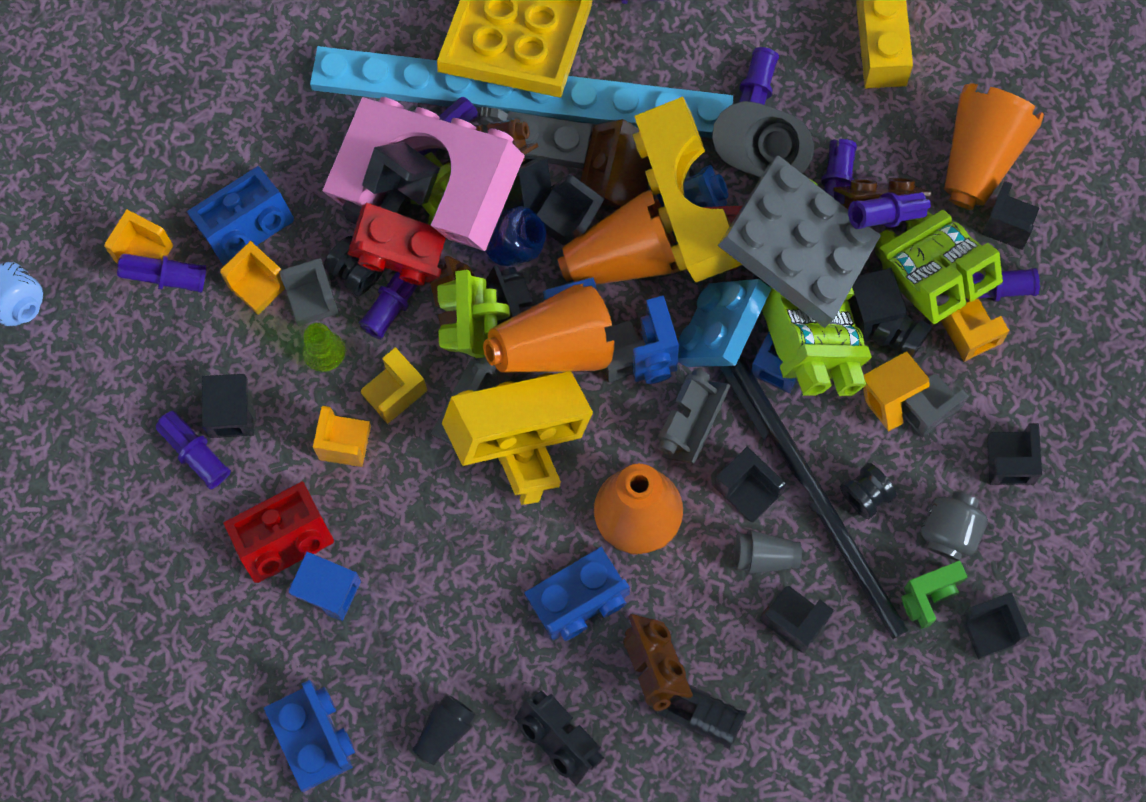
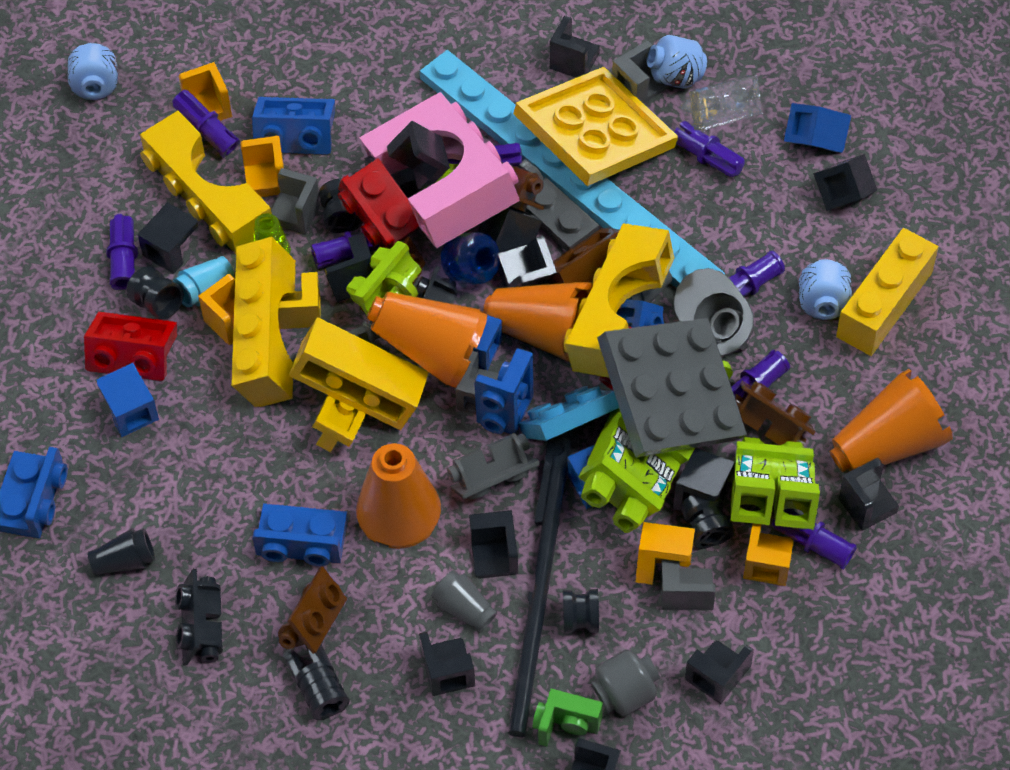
camera: 35 degrees right, 15 degrees down
(259, 468) = (155, 292): none -> black wheel
(265, 341) = (176, 151): none -> yellow arch
(290, 426) = (201, 277): none -> medium azure cone
(408, 459) = (259, 356): none -> yellow arch
(421, 321) = (342, 274): none -> black panel
(829, 52) = (824, 287): none -> light blue head
(888, 210) = (764, 415): dark purple axle -> none

